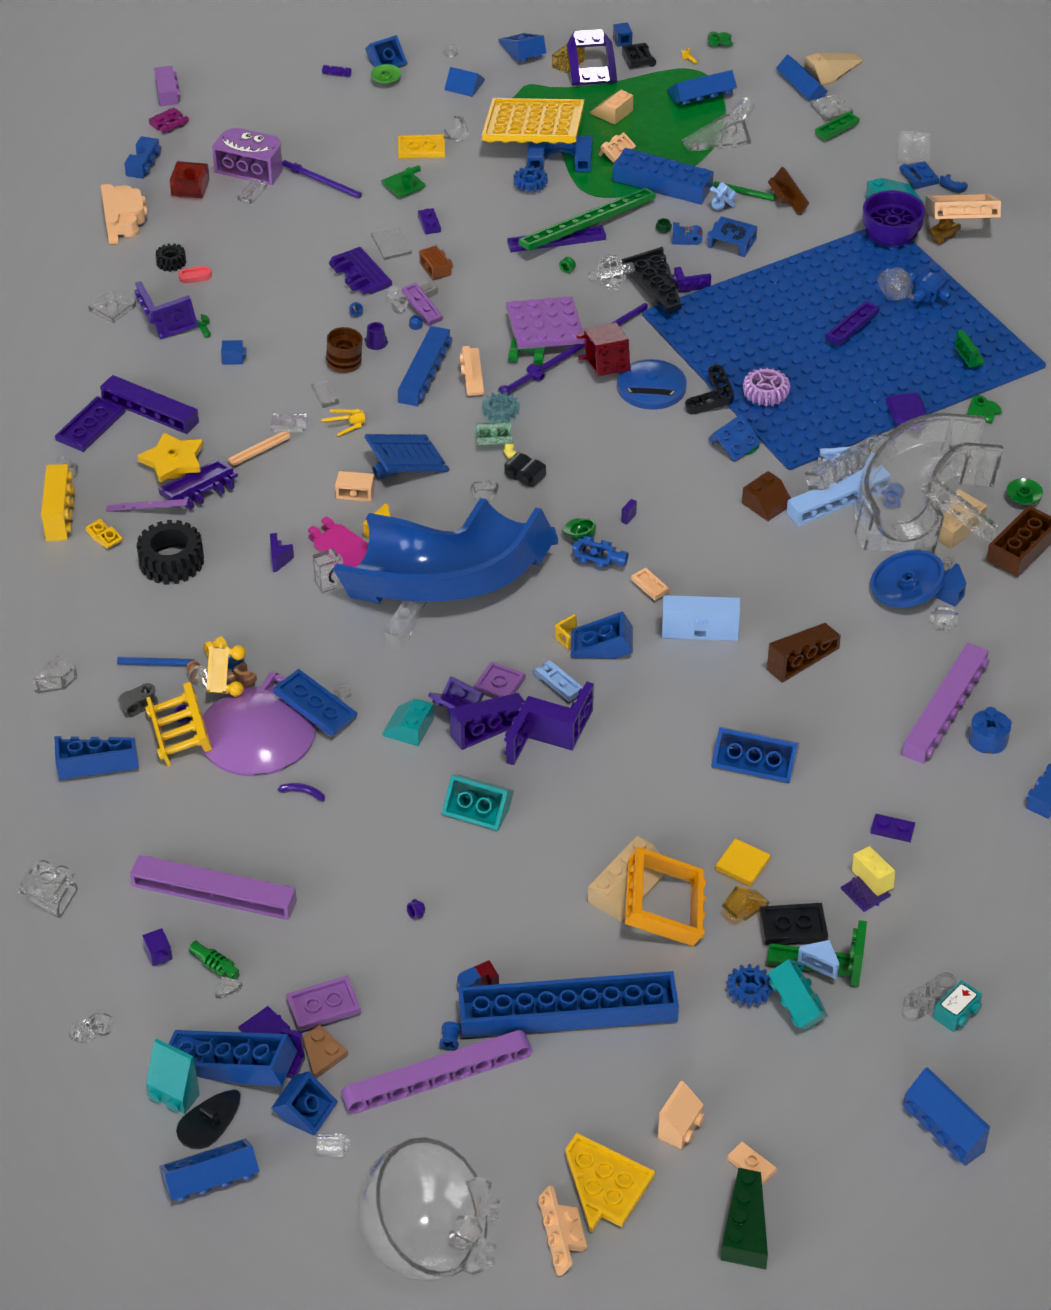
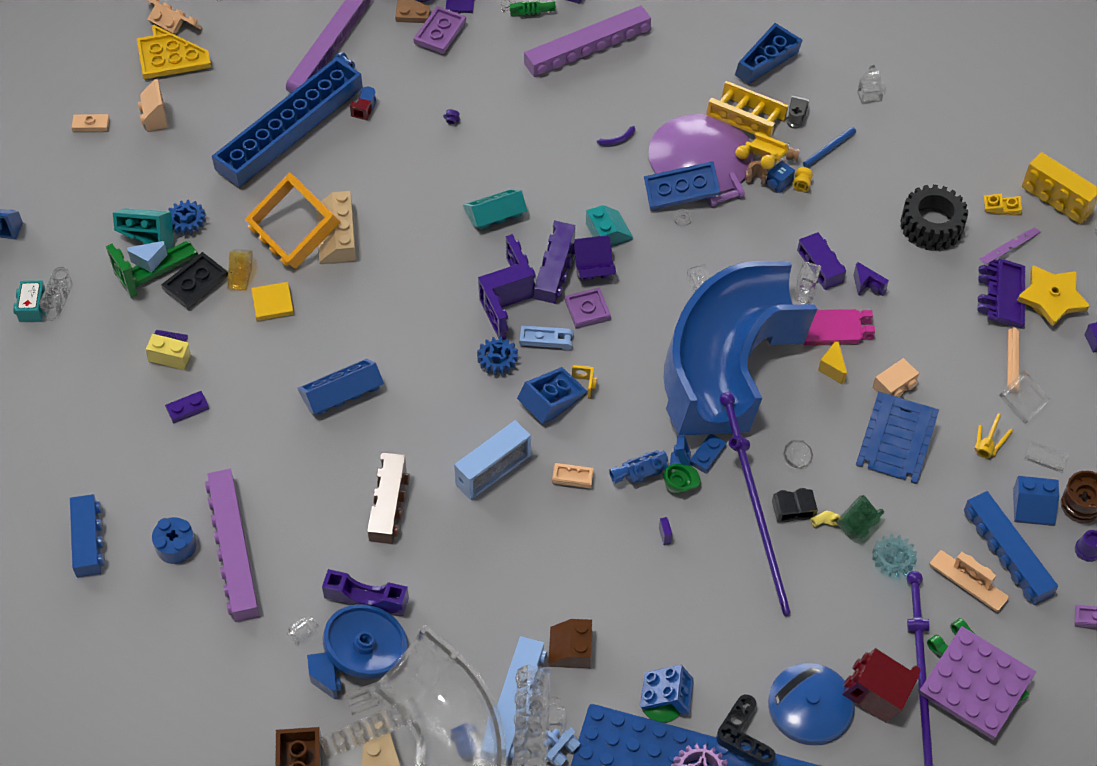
camera: 135 degrees right, 10 degrees up
(289, 586) = (816, 251): none -> dark purple brick
(369, 375) = (1036, 500): none -> blue slope
(415, 322) = (1089, 601): blue hinge -> none
(525, 501) = (741, 445): none -> dark purple bar
(563, 541) = (681, 452): none -> blue bracket
(612, 691) = (497, 355): none -> blue gear
(745, 1228) = (61, 83): dark green wedge -> none
(865, 595) = (345, 589): none -> dark purple arch

